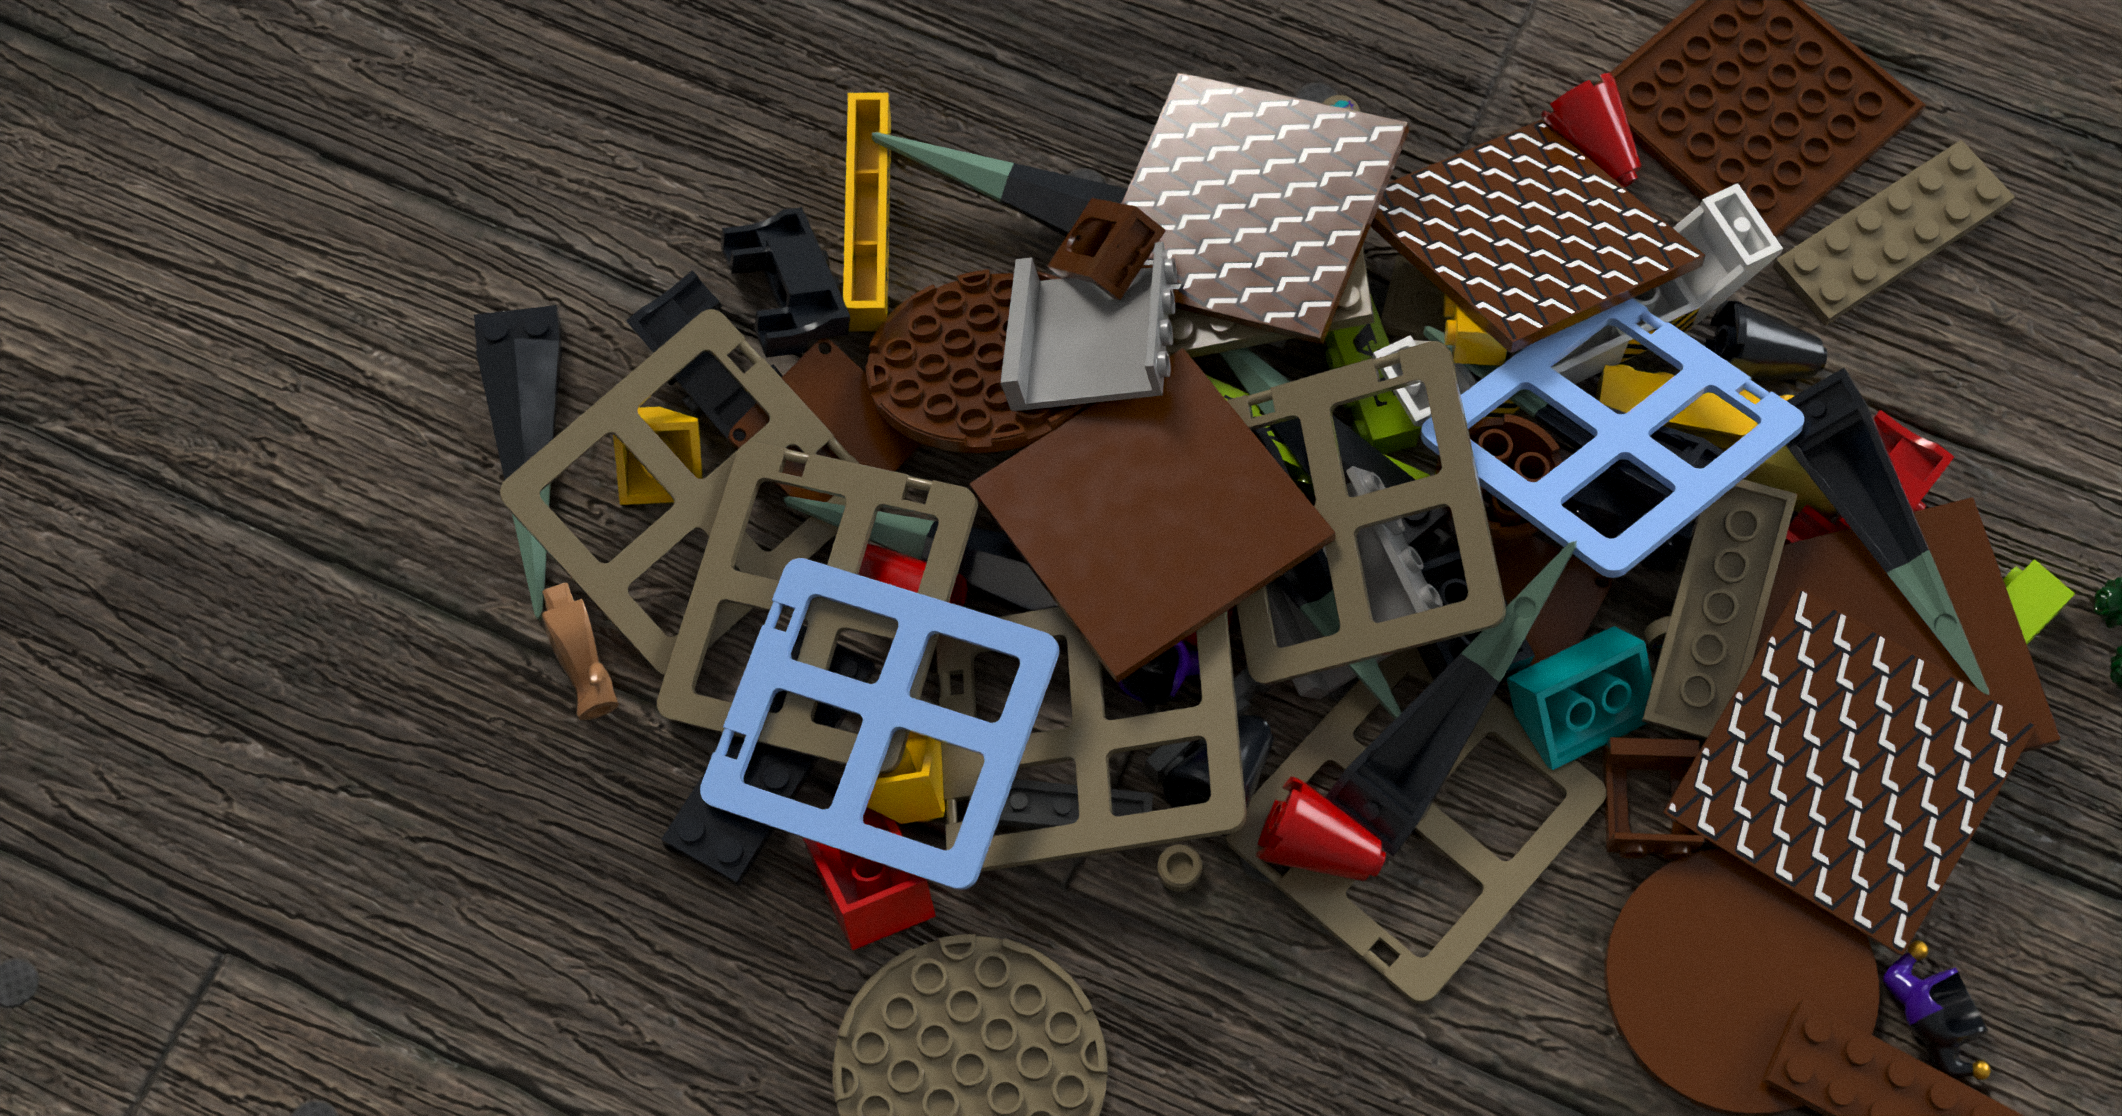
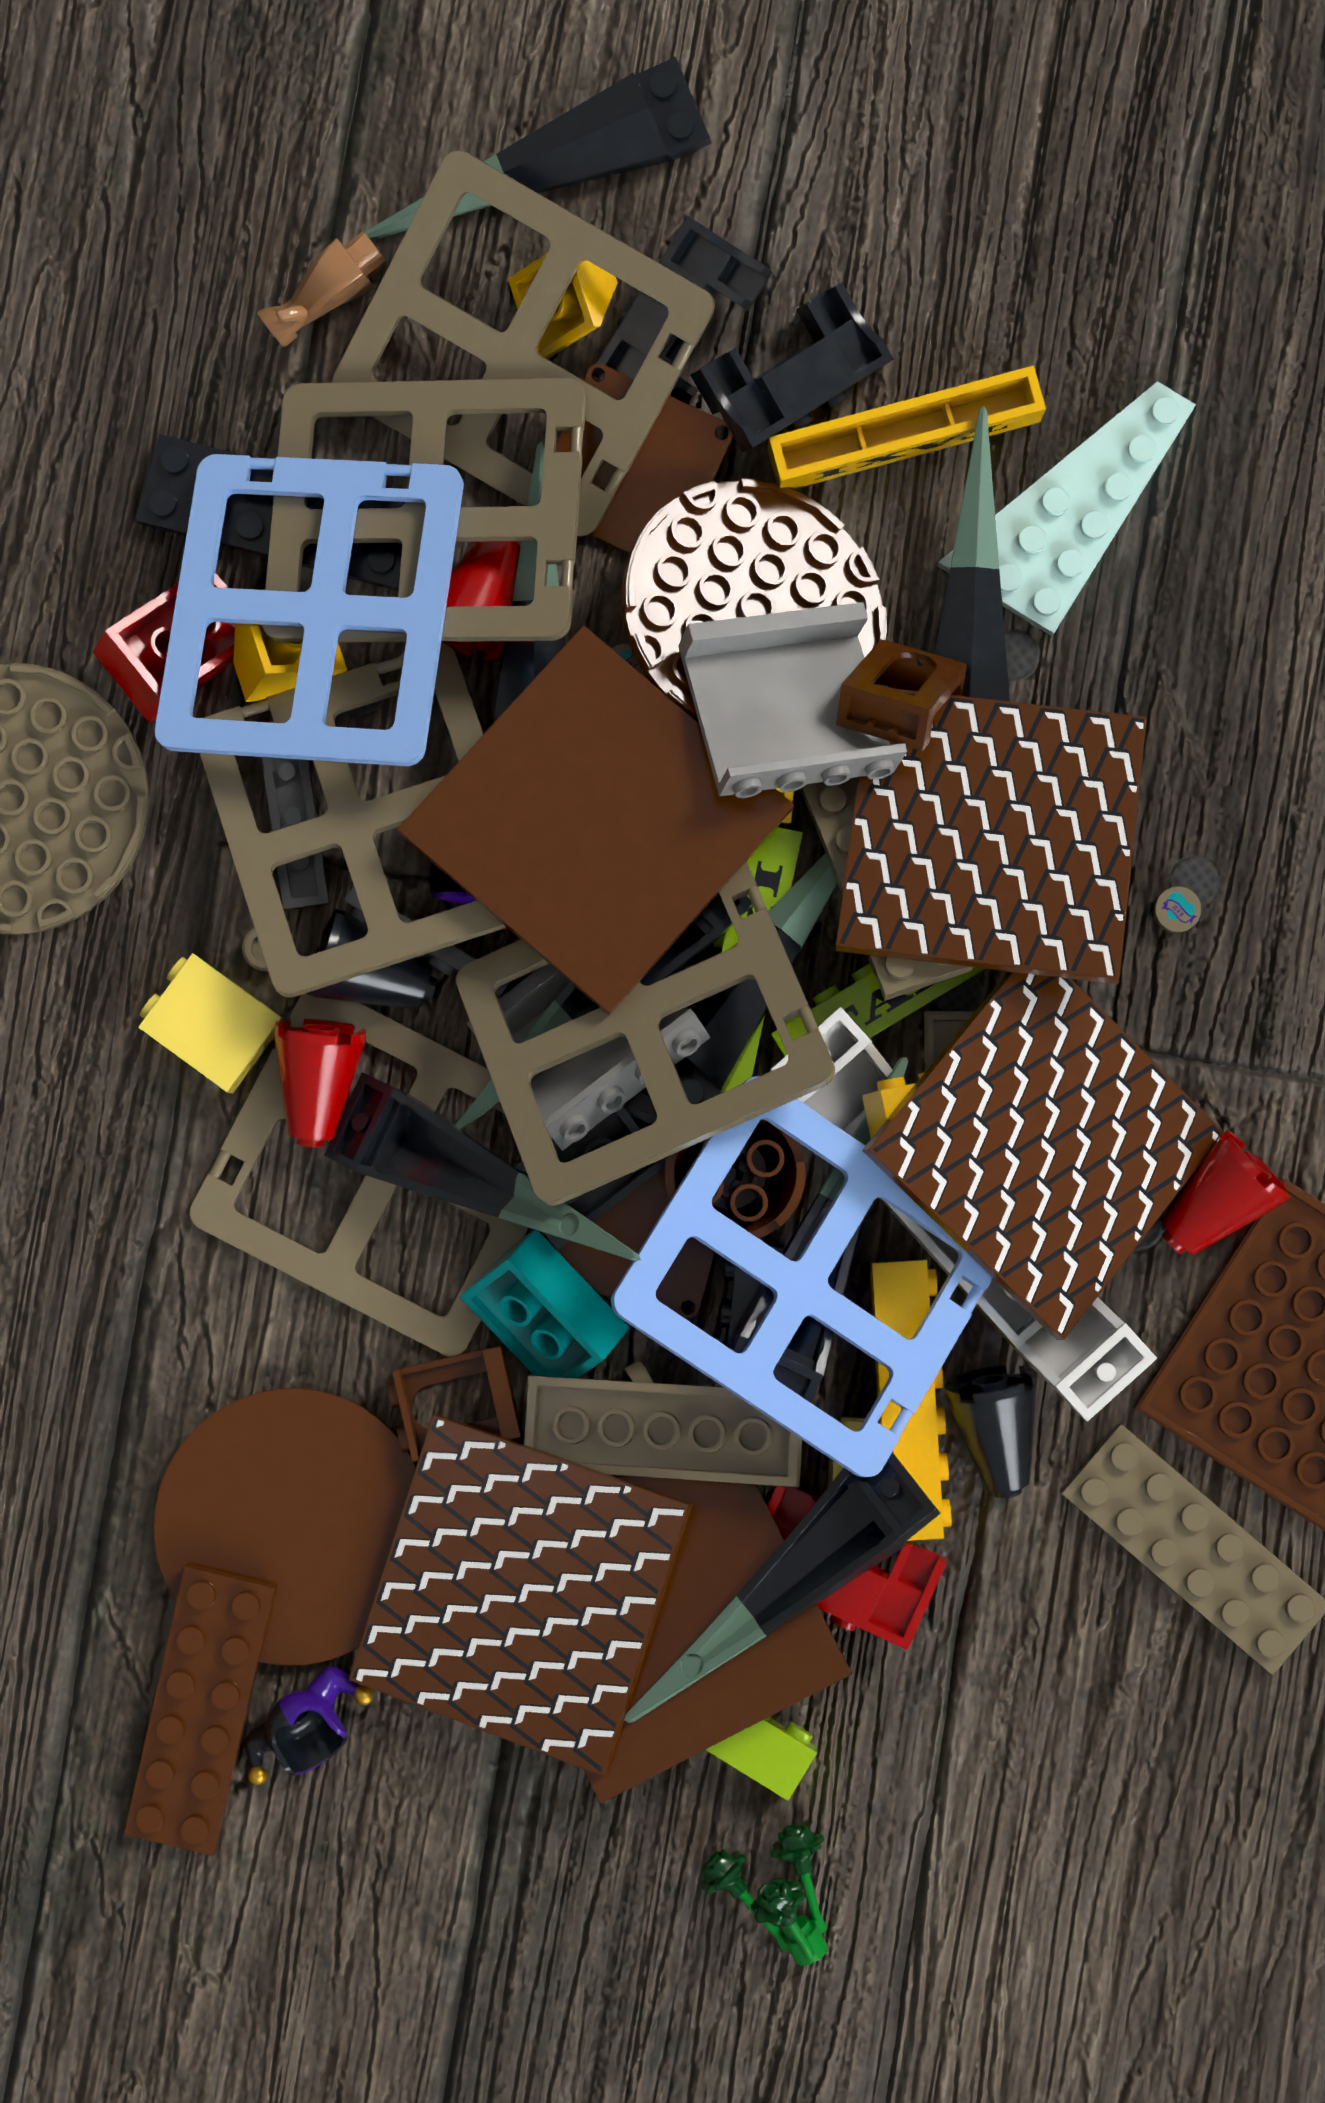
camera: 80 degrees right, 20 degrees up
(972, 103) = (1071, 514): none -> light aqua wing
(1240, 930) = (210, 1022): none -> light yellow brick

